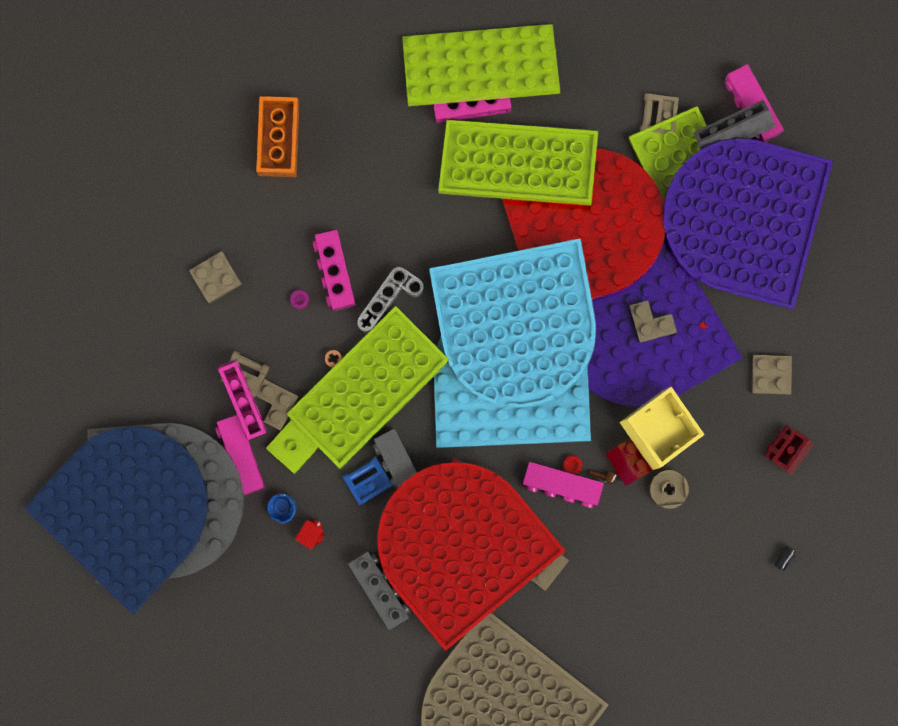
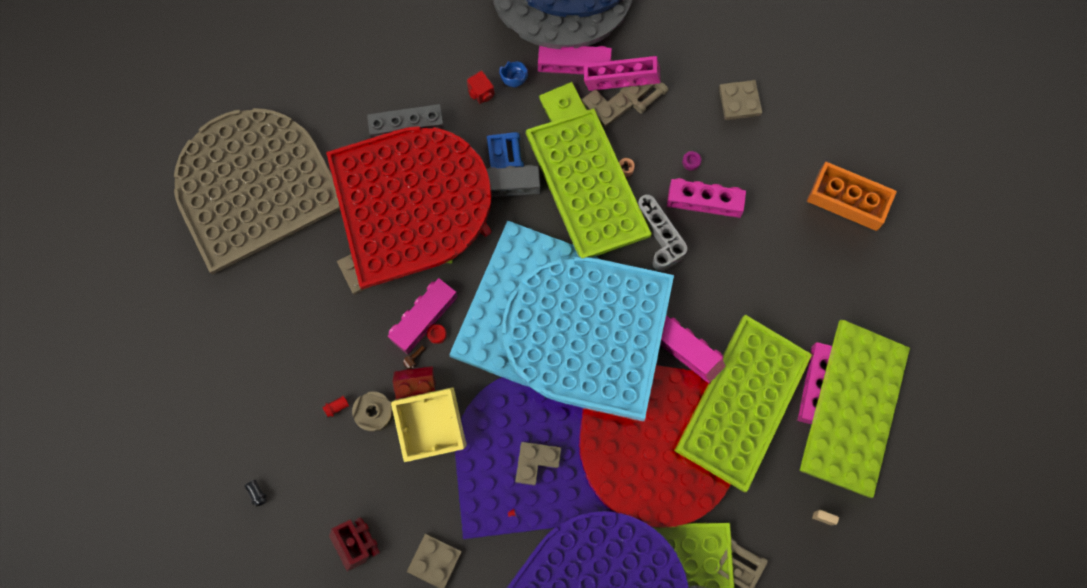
camera: 115 degrees right, 10 degrees down
(494, 225) = (690, 350): none -> dark pink brick
(588, 58) = (825, 517): none -> tan tile
(679, 525) = (335, 406): none -> red pin

